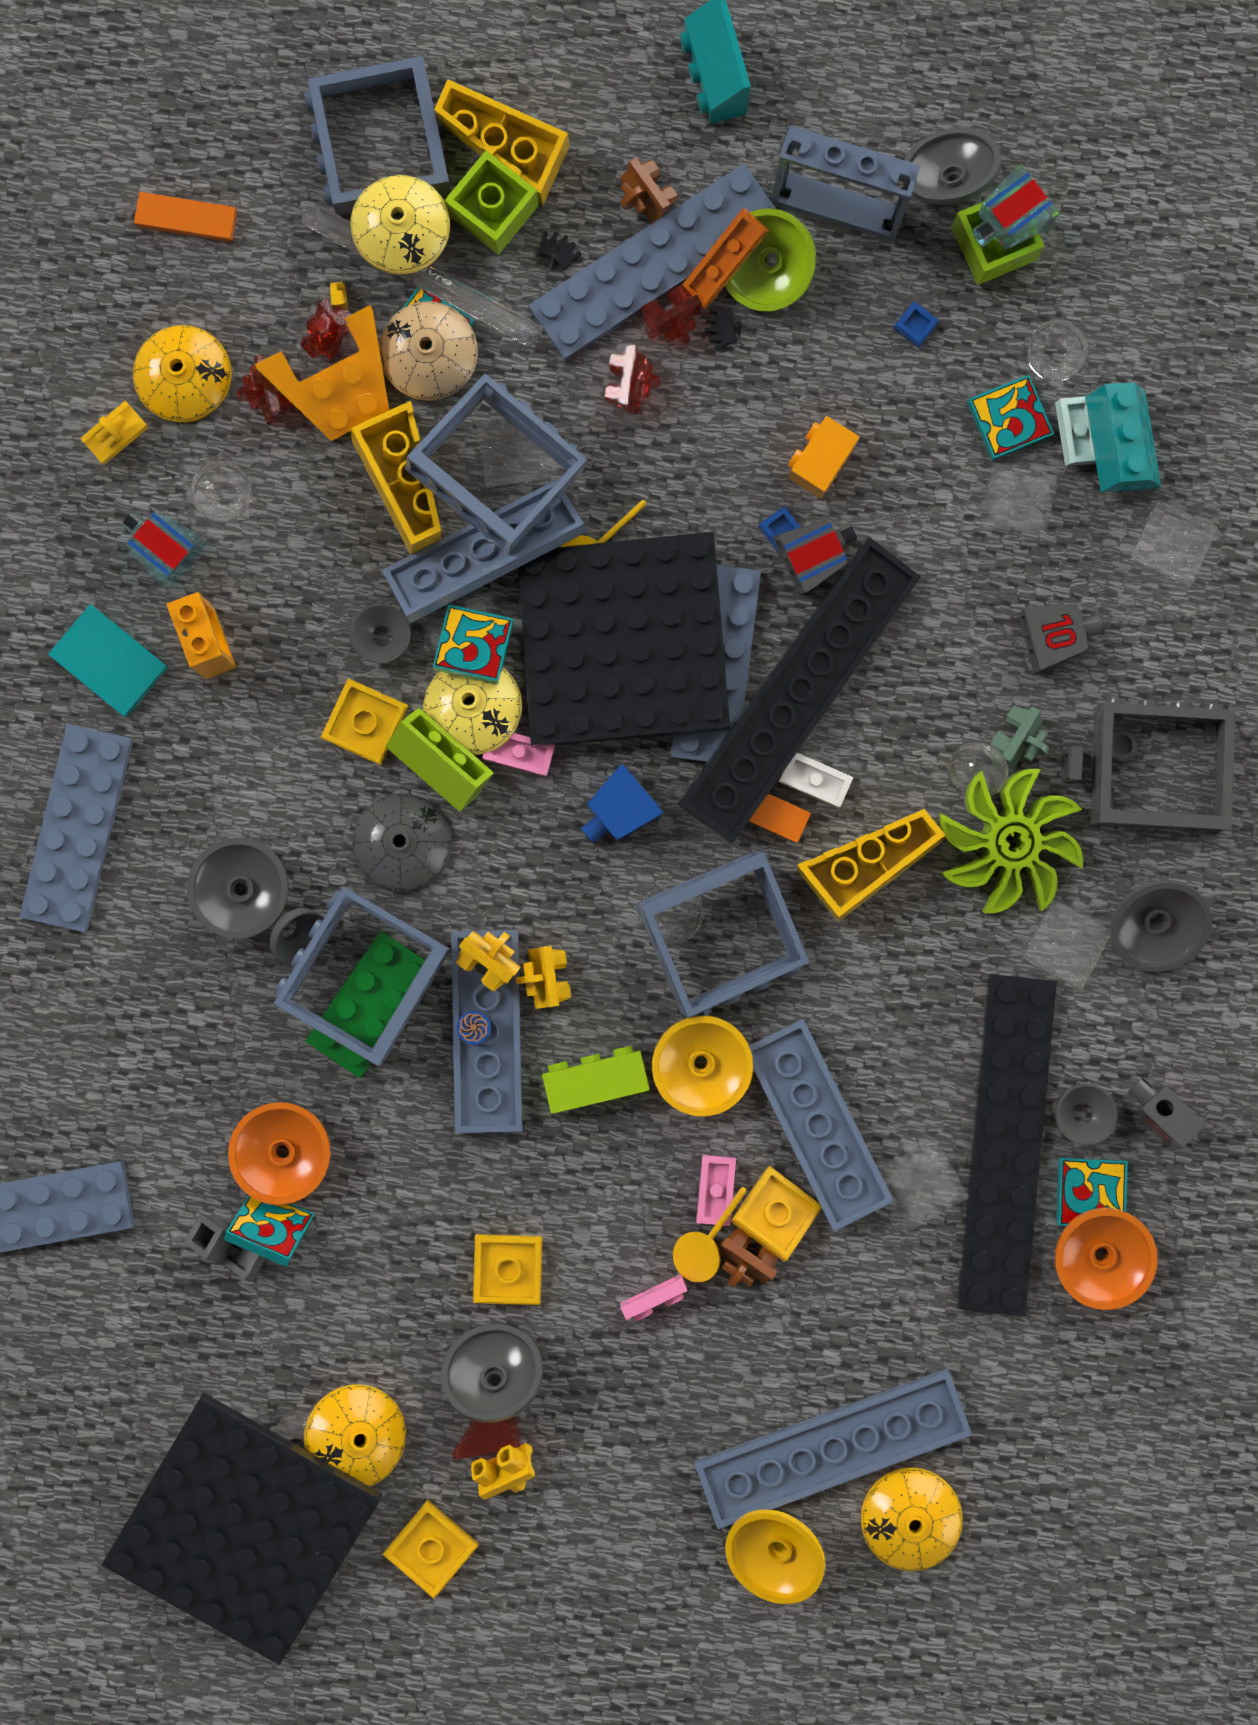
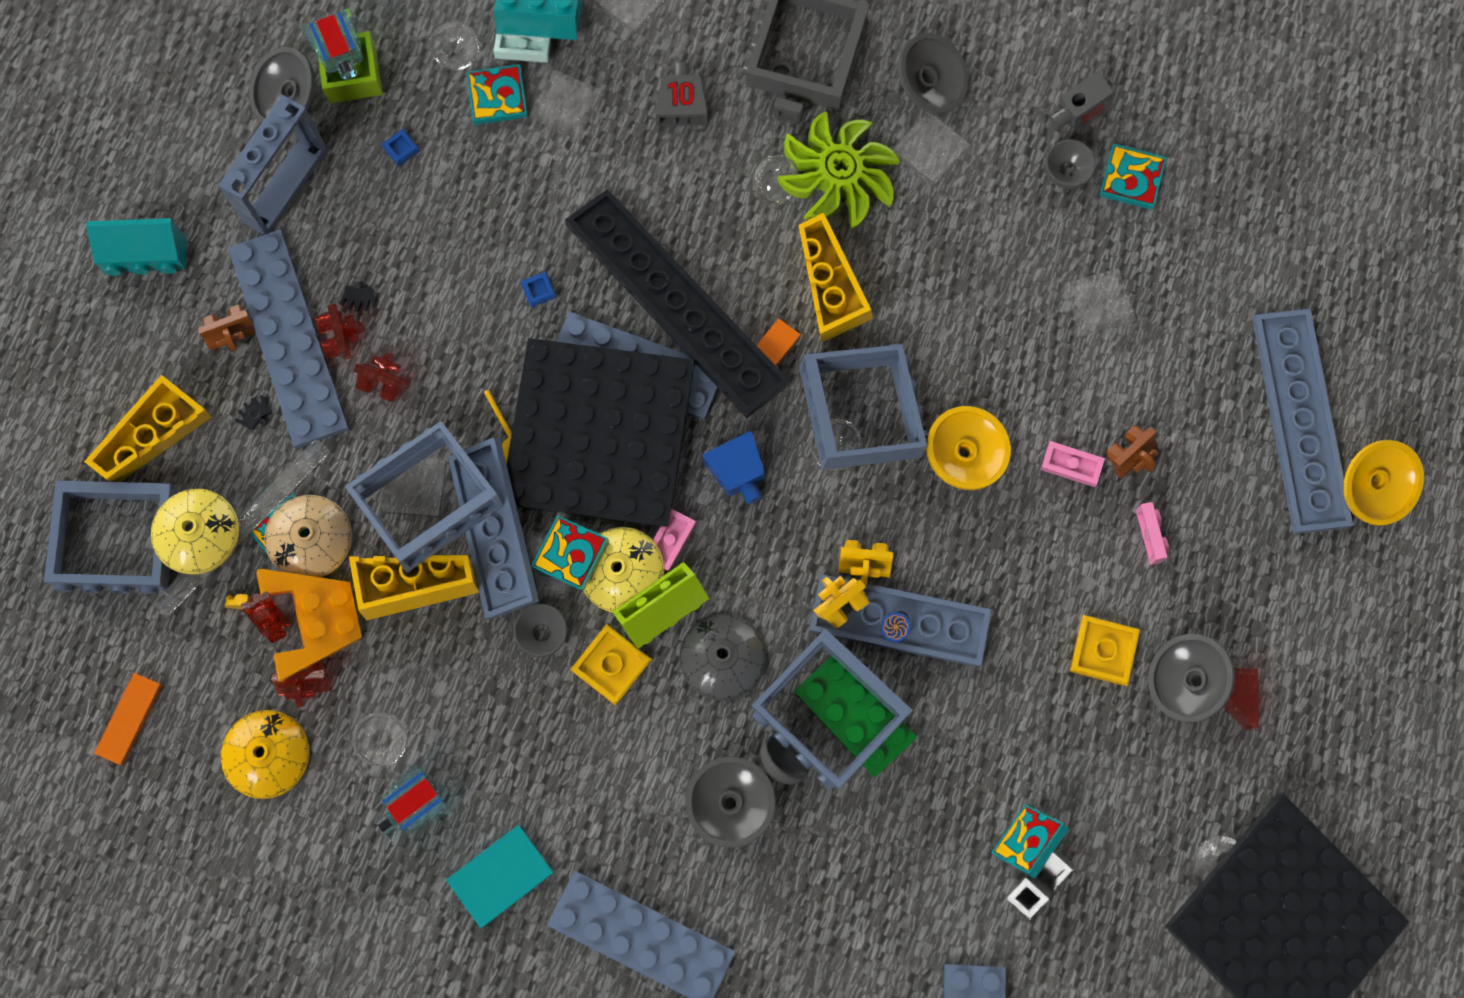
camera: 70 degrees left, 10 degrees down
(114, 432) = (301, 822): yellow hips -> none
(206, 643) = (494, 780): light orange window -> none
(256, 1160) = (989, 814): orange dish -> none
(352, 1412) = (1206, 814): yellow dish -> none
(430, 1549) = (1330, 769): yellow tile -> none
(492, 202) = (198, 452): lime brick -> none
(504, 1472) = (1275, 688): yellow hips -> none
(595, 1079) = (961, 539): lime brick -> none
(697, 1254) = (1123, 490): yellow piece -> none
(725, 257) = (302, 276): orange tile -> none
(776, 1213) = (1101, 420): yellow tile -> none
(777, 286) = (336, 239): lime dish -> none
(814, 552) = (566, 266): torso -> none
(816, 780) = (754, 306): white plate -> none
(818, 1125) = (1036, 369): sand blue plate -> none
(823, 456) = (488, 241): light orange brick -> none
(895, 1503) = (1357, 383): yellow dish -> none
(1007, 1145) = (1081, 231): black plate -> none
(1027, 725) = (746, 138): sand green hips -> none
(1123, 1271) = (1198, 164): orange dish -> none

